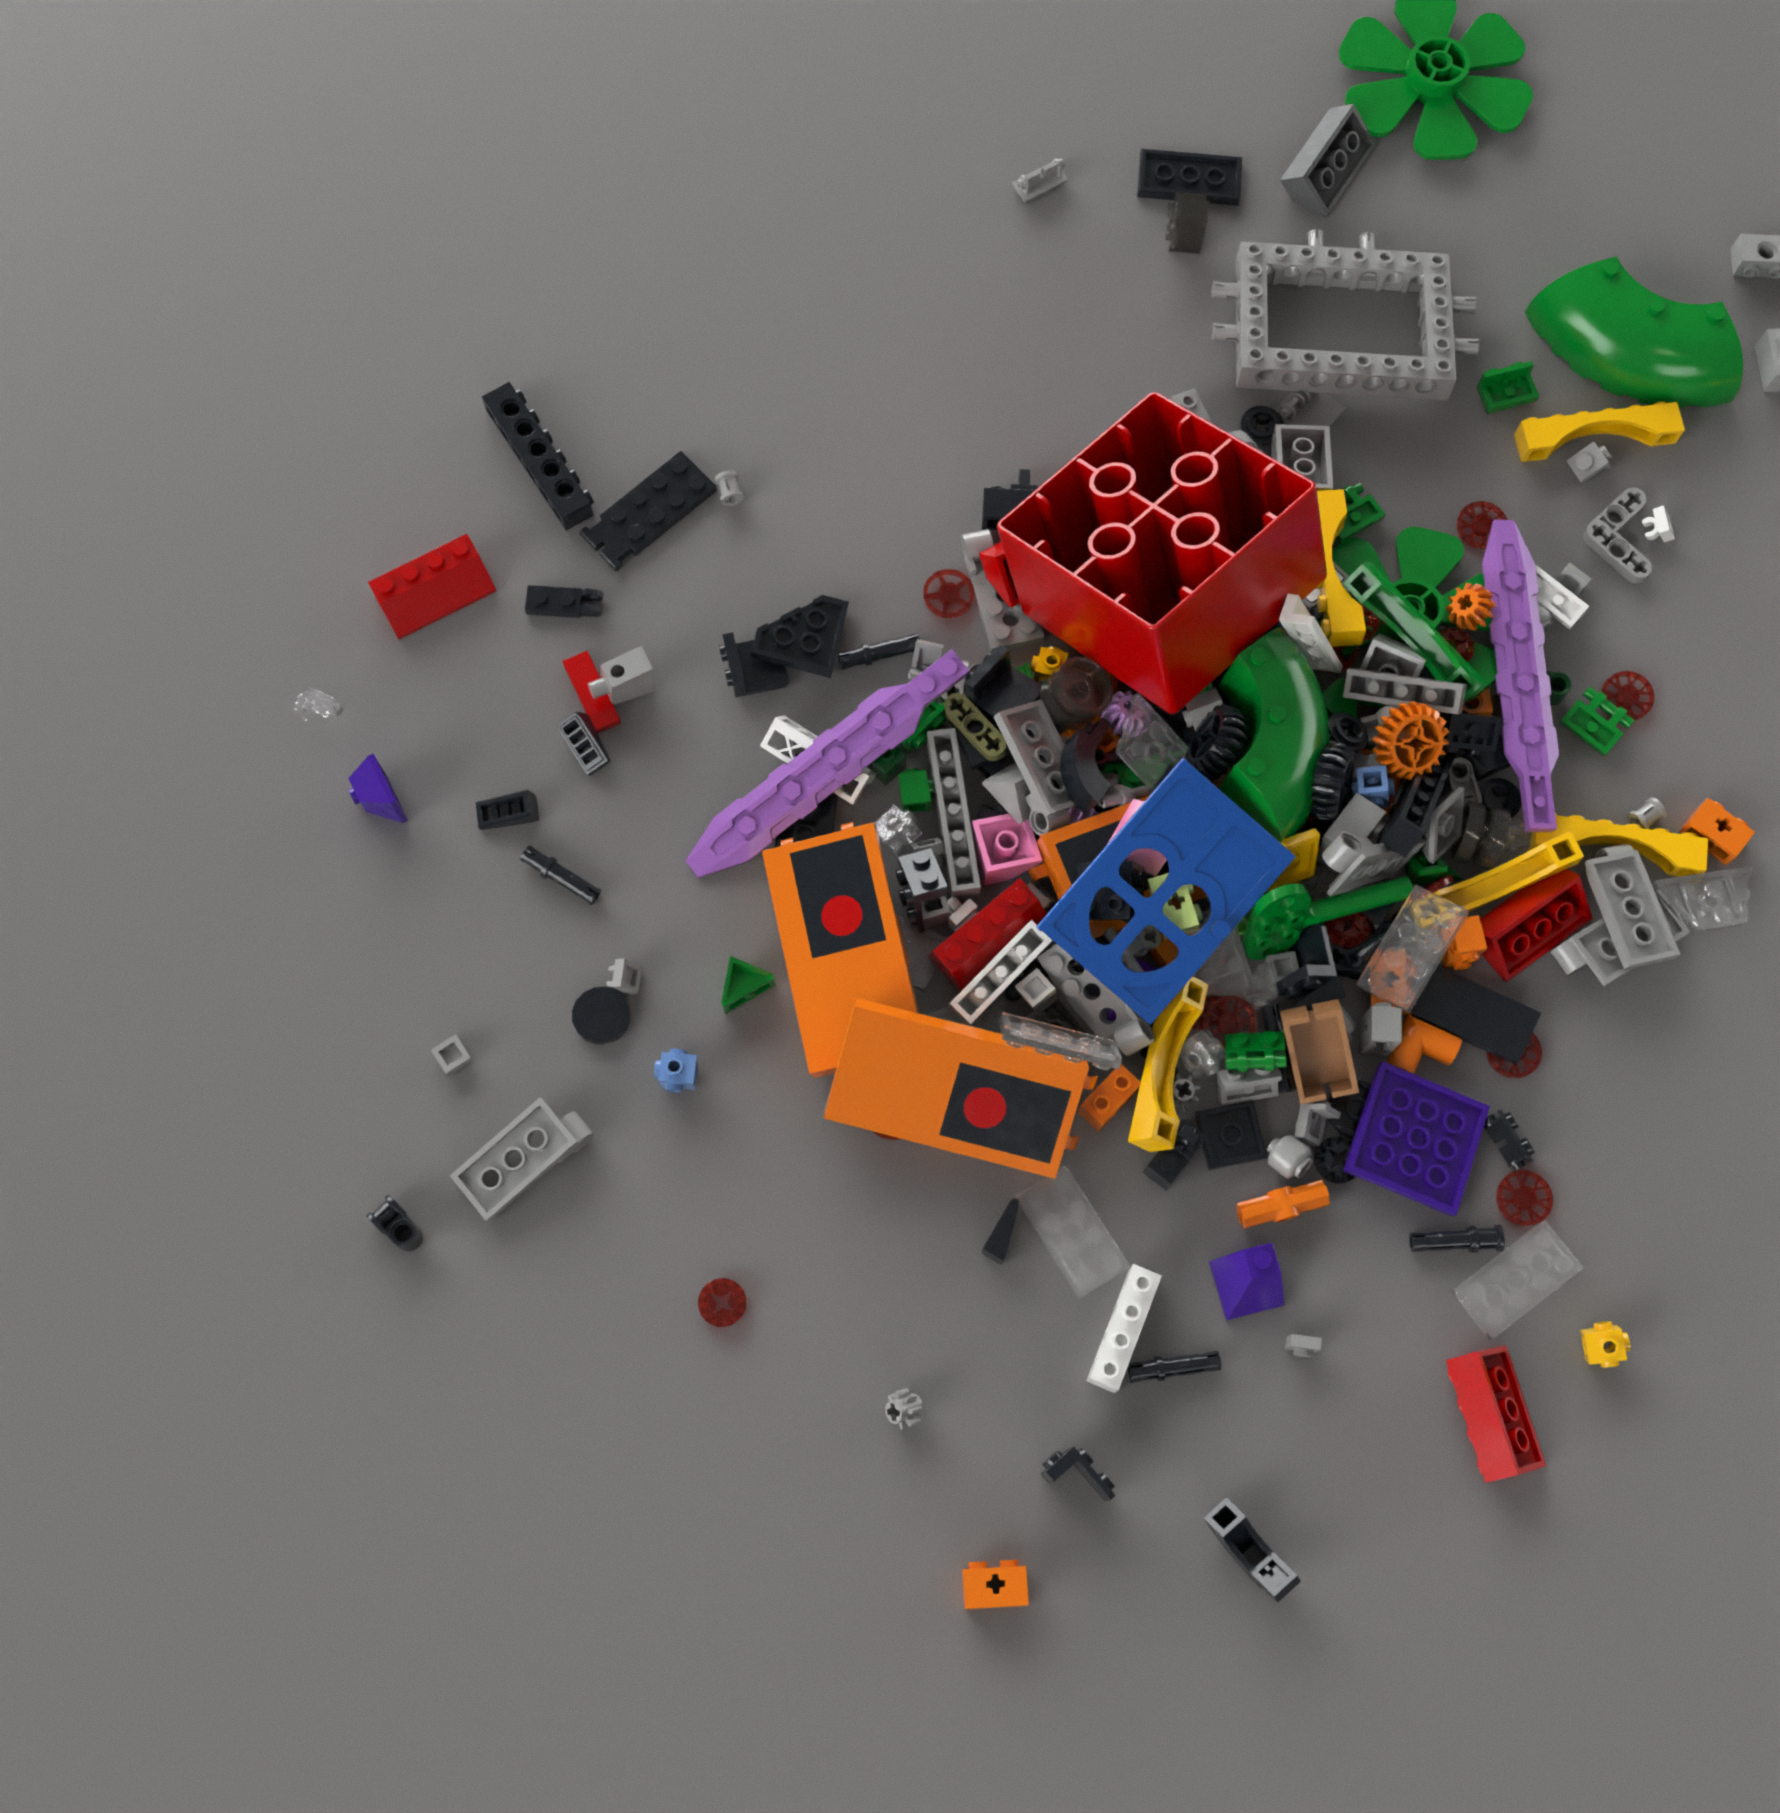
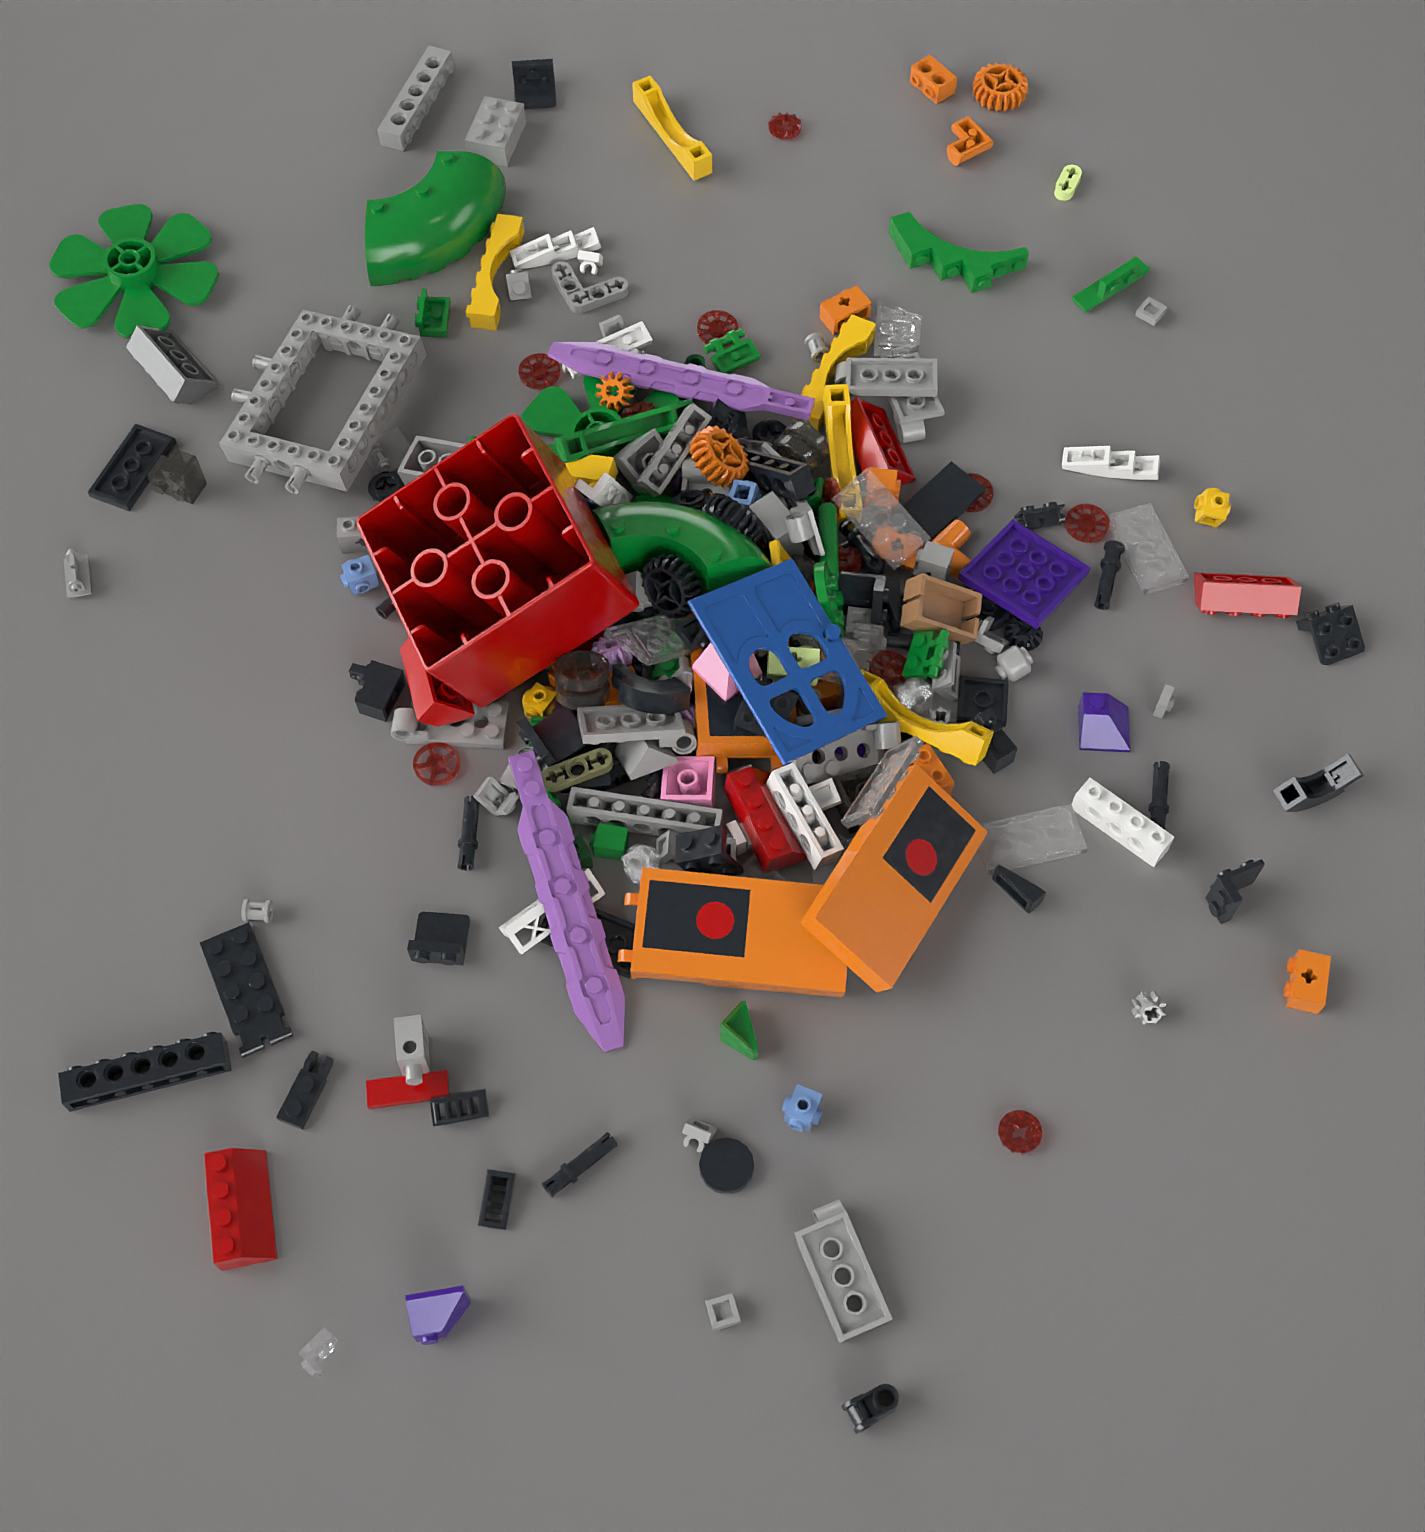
camera: 70 degrees left, 10 degrees down
(804, 637) = (432, 887): black plate -> none
(1282, 1204) = (1050, 681): orange piece -> none
(1480, 1534) = (1334, 632): none -> black bracket
(1623, 1207) = (1110, 464): none -> white slope
(1659, 482) = (549, 251): none -> white slope

